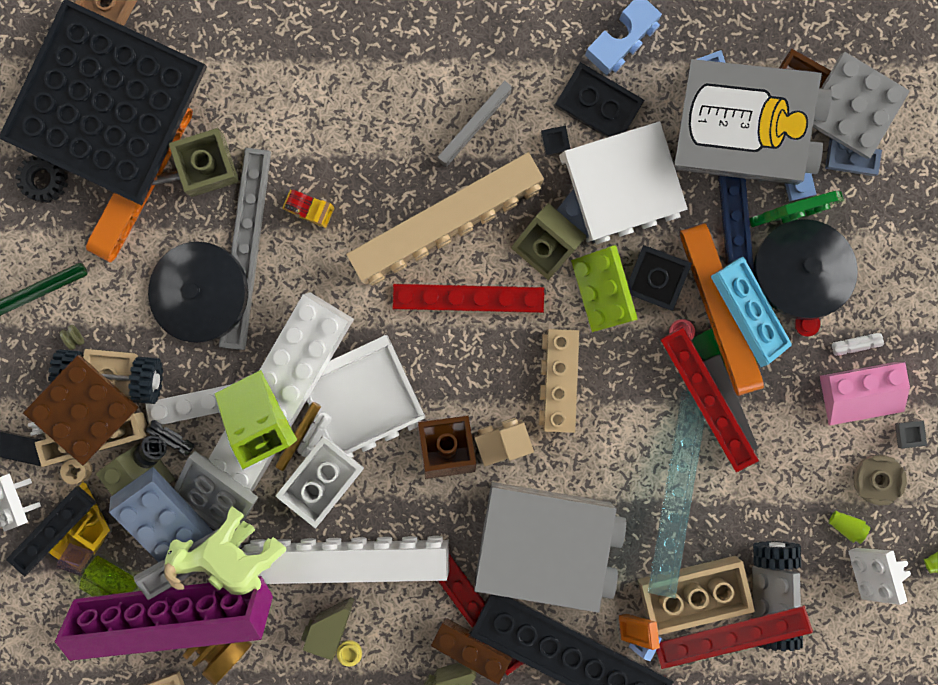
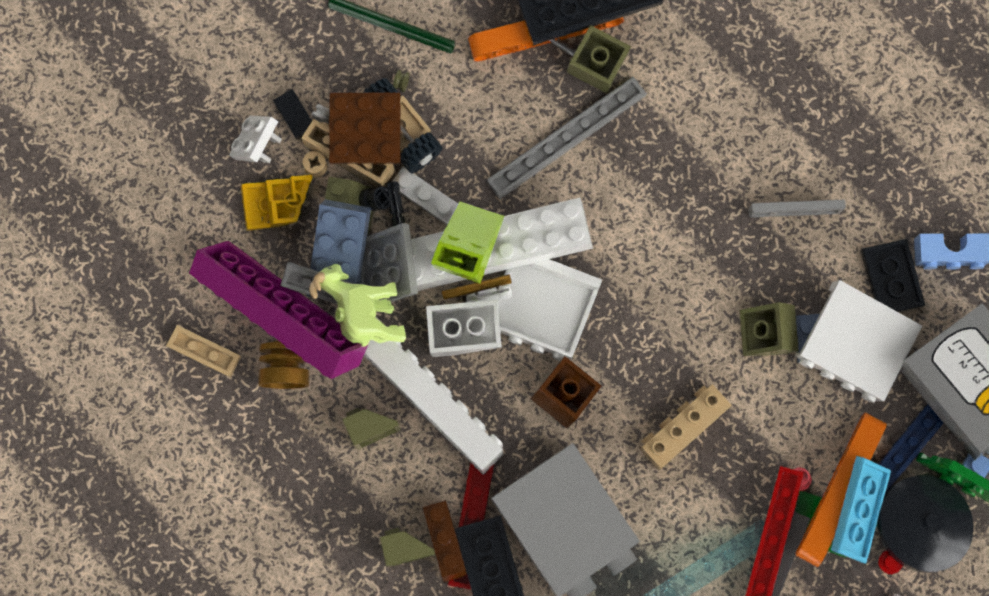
camera: 40 degrees right, 10 degrees down
(51, 531) = (261, 183): black tile -> none
(75, 559) = (256, 216): tile -> none
(106, 579) = (260, 247): clear neon green panel -> none
(198, 292) = (509, 133): black dish -> none
(308, 208) = (634, 153): leg -> none
(349, 653) = (361, 460): light yellow plate -> none
(446, 219) = (717, 248): tan brick -> none
(468, 298) = (678, 313): red plate -> none
(503, 443) = (607, 428): tan brick -> none
(555, 140) = (839, 270): black plate -> none
(604, 289) = (775, 396): lime plate -> none
(658, 277) = (818, 425): black brick -> none

